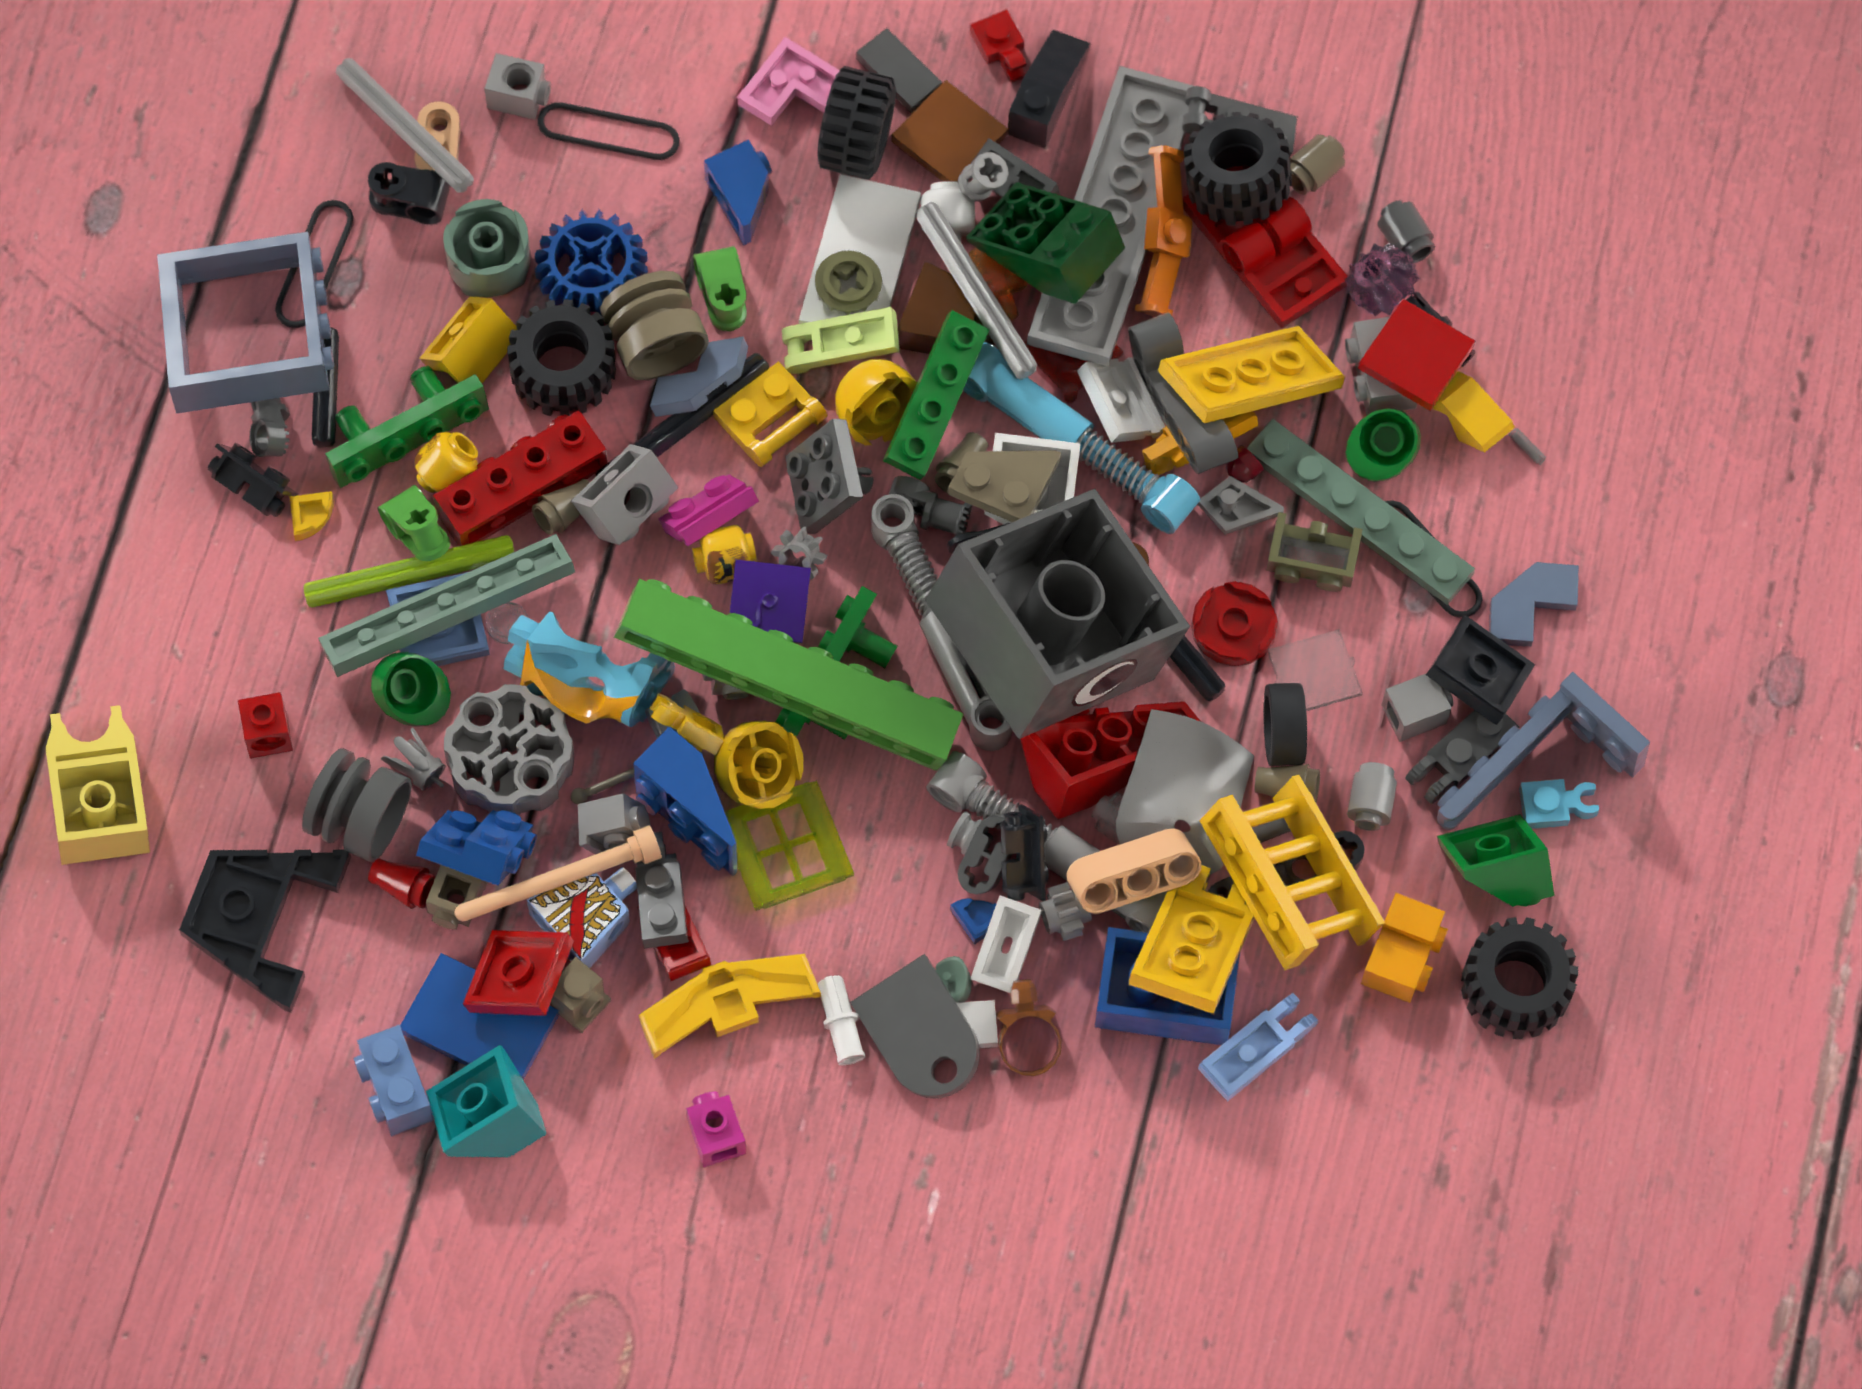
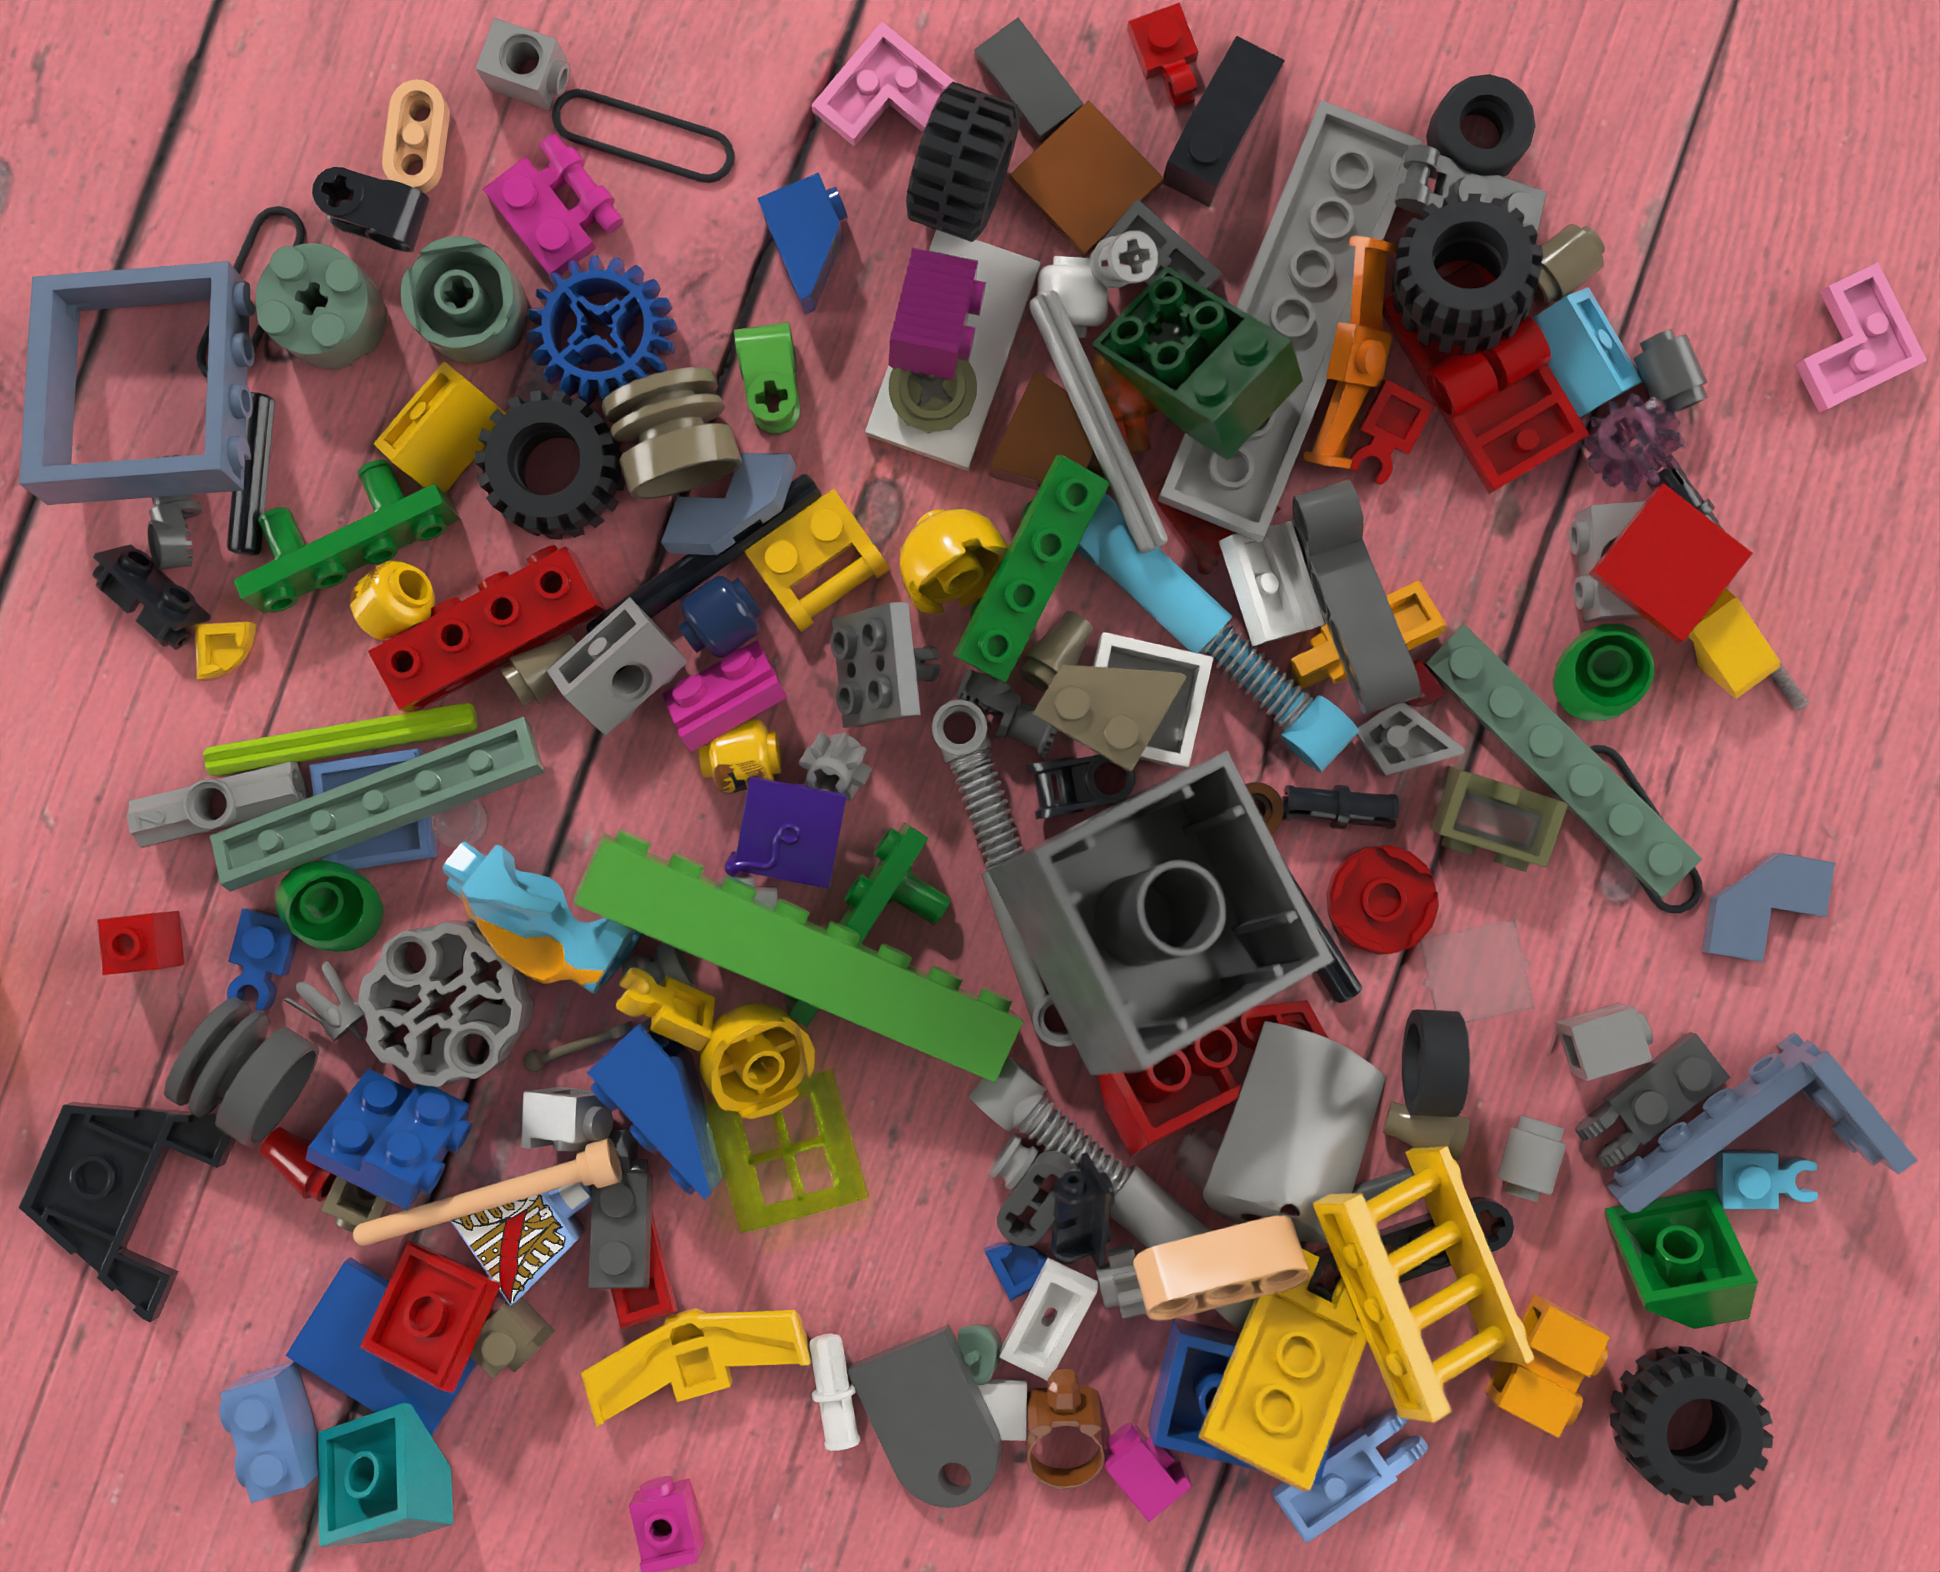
camera: 15 degrees right, 20 degrees up
(291, 631) = (189, 812): none -> light grey piece
(358, 726) = (263, 949): none -> blue plate
(375, 261) = (290, 298): none -> sand green brick
(405, 125) = (370, 113): light grey axle -> none
(415, 524) = (349, 681): bright green piece -> none
(535, 192) = (540, 216): none -> dark pink plate
(700, 455) = (719, 616): none -> dark blue head
(841, 339) = (917, 470): yellowish green plate -> none
(845, 226) = (934, 312): none -> magenta brick
(1094, 1053) = (1145, 1470): none -> dark pink brick
(1192, 556) = (1340, 807): none -> black pin
(1200, 284) = (1393, 423): none -> red plate
(1247, 56) = (1500, 103): none -> black tyre
(1251, 374) = (1447, 572): yellow tile -> none
(1340, 222) = (1586, 352): none -> medium azure panel
(1480, 669) = (1693, 1004): black tile -> none
(1555, 203) = (1874, 341): none -> bright pink plate

